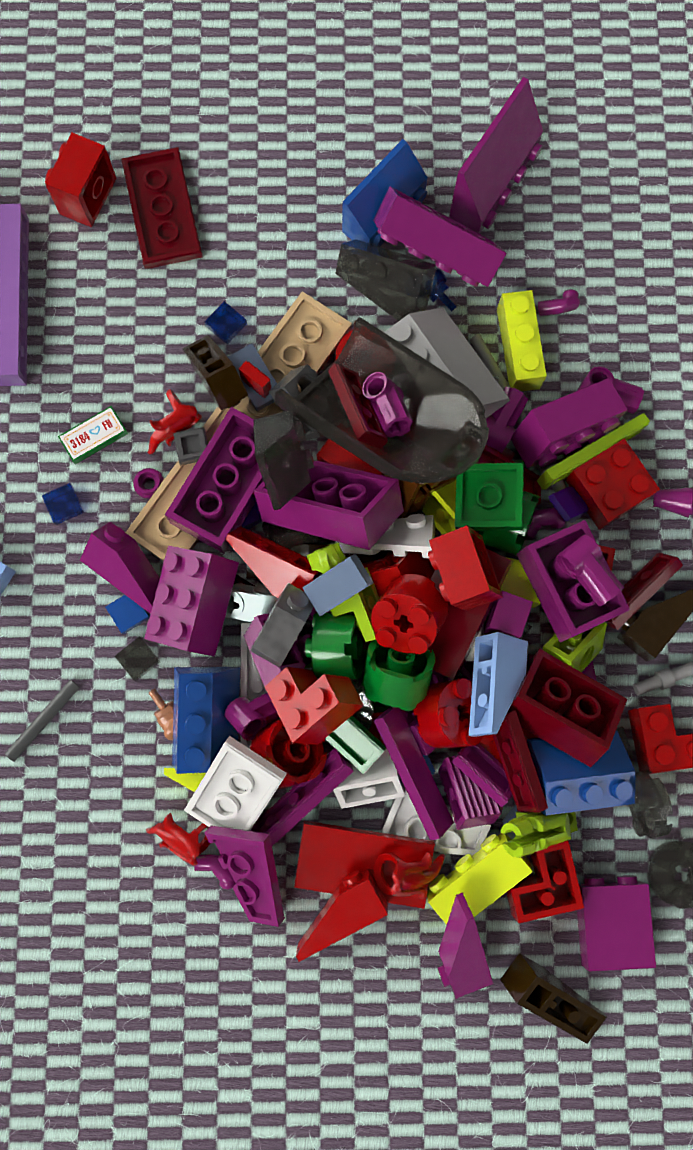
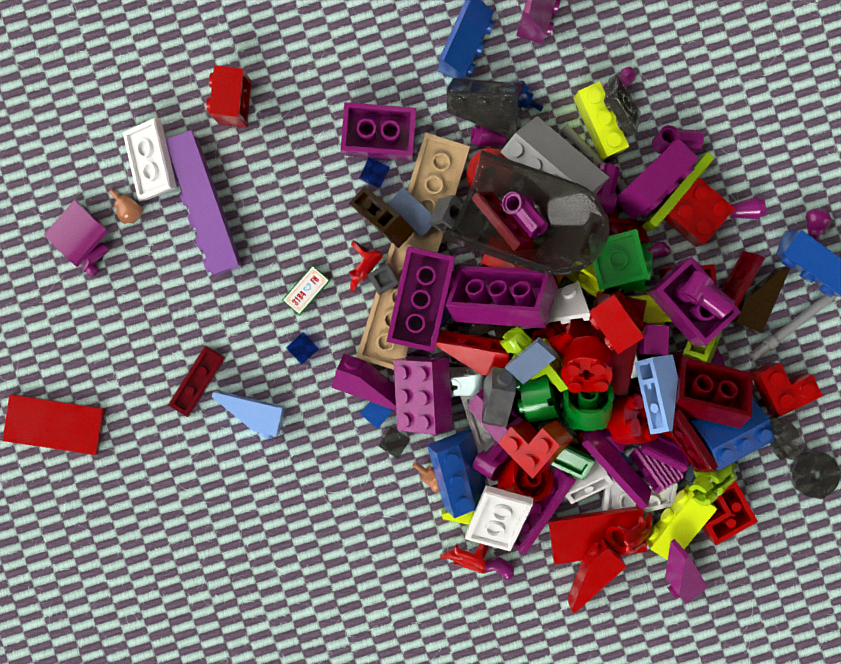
camera: 15 degrees left, 10 degrees up
(42, 720) = (343, 504): dark grey bar -> none
(142, 477) = (352, 314): magenta plate -> none
(161, 208) = (295, 95): dark red tile -> none
(245, 272) = (378, 131): none -> magenta brick
(253, 869) = (525, 564): magenta wing -> none
(255, 379) = (416, 217): red tile -> none
(282, 456) = (462, 278): clear smoke slope -> none
(376, 316) = (485, 137): none -> magenta cone
(438, 237) = (519, 63): magenta brick -> none
(550, 320) = (623, 106): none -> clear smoke plate
(551, 999) = (748, 584): dark brown slope -> none
(569, 504) = (670, 237): dark purple slope -> none
(615, 925) = (780, 523): magenta brick -> none

